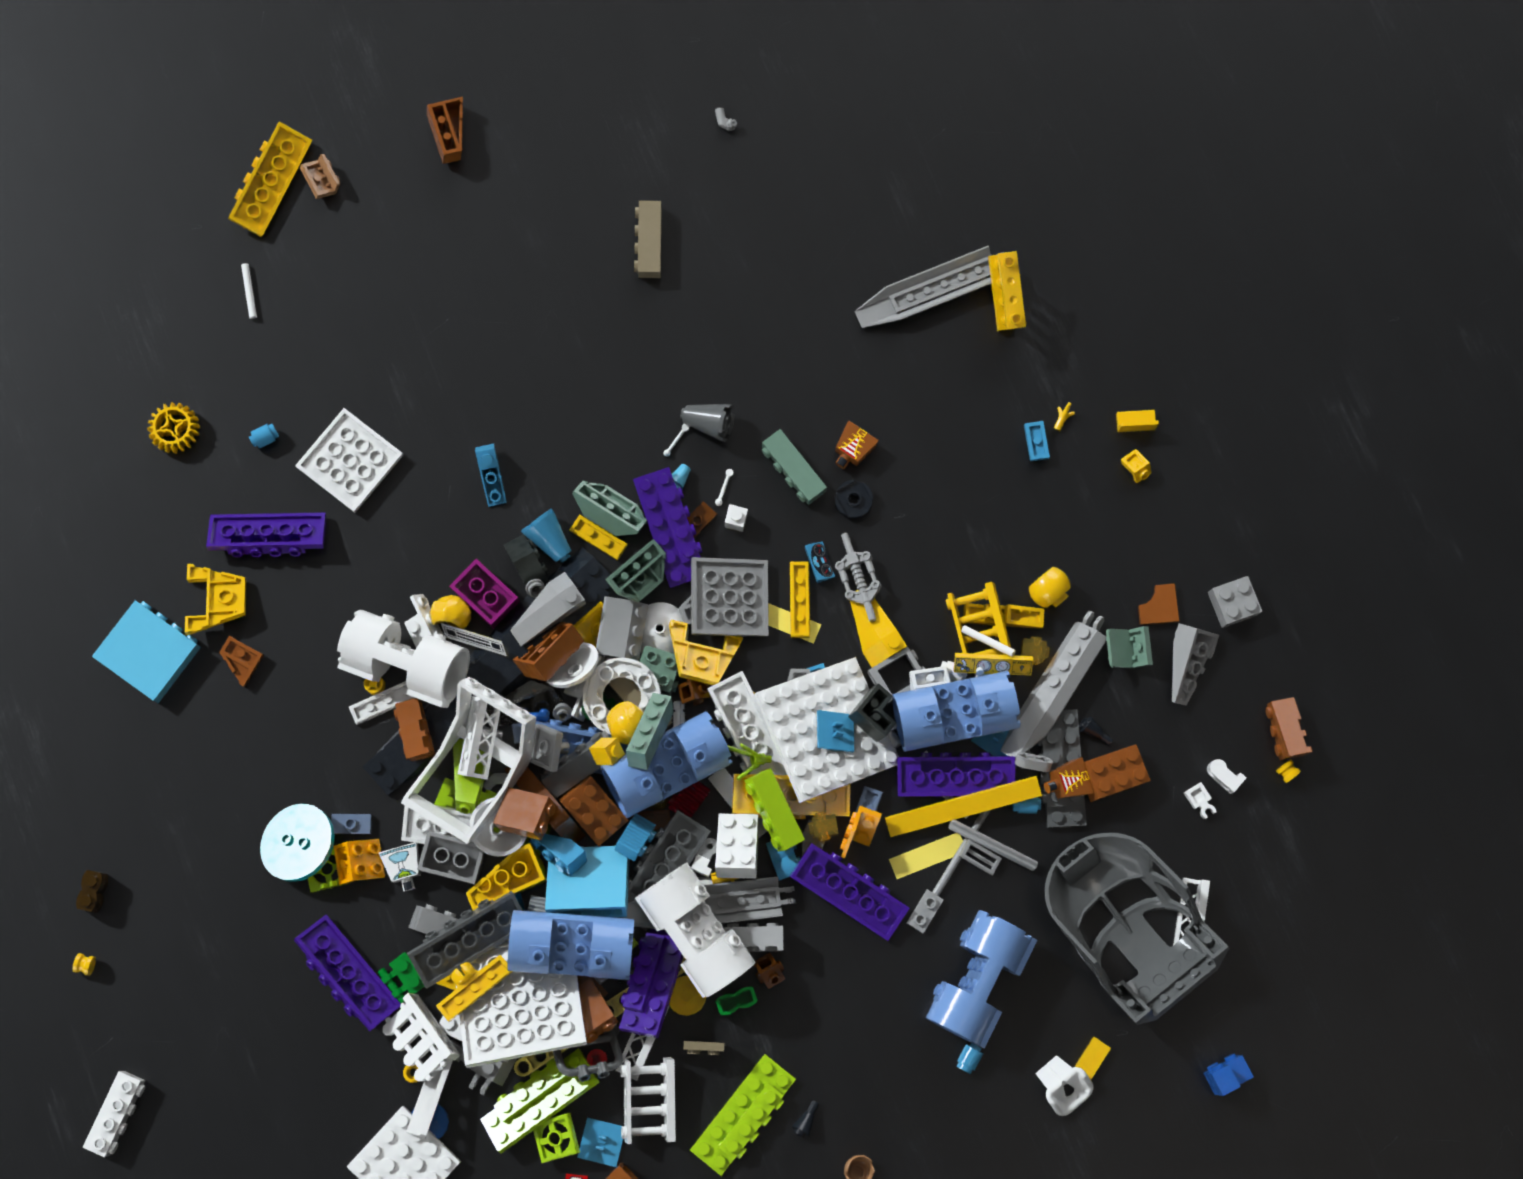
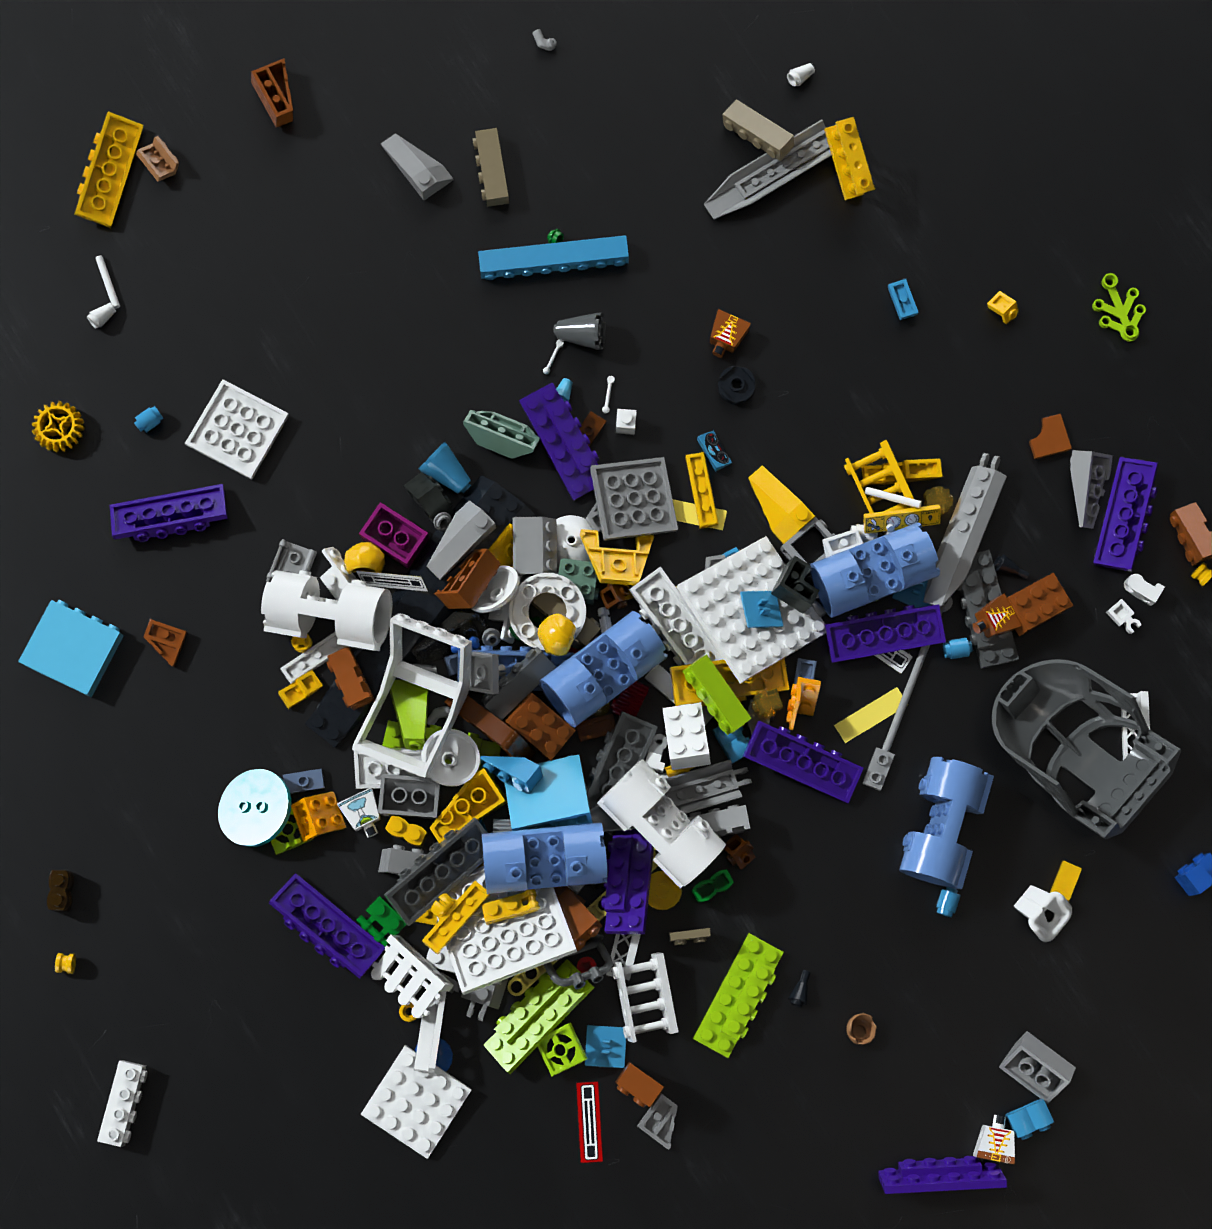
camera: 10 degrees left, 0 degrees up
(224, 598) = (138, 582): yellow wing -> none
(236, 323) = (101, 315): none -> white cone
(364, 731) = (300, 689): none -> yellow slope
(380, 600) = (292, 559): none -> light grey piece
(446, 894) = (402, 829): none -> yellow brick
(473, 739) = (410, 668): white fence -> none
(490, 474) = (378, 420): dark azure slope -> none
(524, 813) = (475, 739): brick -> none
(529, 987) = (510, 907): none -> yellow plate
(578, 229) = (420, 169): none -> light grey wedge
(598, 537) = (494, 463): yellow tile -> none
(607, 751) = (544, 665): yellow brick -> none
(635, 837) = (585, 745): dark azure brick -> none
(639, 573) = (543, 489): sand green wedge -> none
(649, 731) = (583, 638): sand green brick -> none
(694, 340) = (553, 257): none -> dark azure brick
(700, 320) = (555, 236): none -> green plate
(755, 758) = (688, 648): lime plant -> none
(794, 467) = (673, 363): sand green brick -> none
(853, 561) = (747, 444): light grey bar -> none
(921, 246) = (758, 130): none -> brick
(963, 806) = (897, 661): yellow tile -> none
(966, 849) = (907, 702): light grey tile -> none
(975, 196) = (800, 74): none -> white cone
(993, 845) = (932, 693): light grey axle -> none
(1033, 762) = (958, 606): light grey beam -> none
(1050, 588) = (943, 437): yellow wheel -> none
(1063, 416) = (923, 271): yellow bar -> none
(1129, 647) = (1029, 481): sand green bracket -> none
(1136, 421) = (995, 264): yellow panel -> none
(1222, 697) = (1127, 514): none -> dark purple plate
(1234, 601) = (1121, 421): light grey brick -> none
(1254, 488) = (1120, 310): none -> lime plant

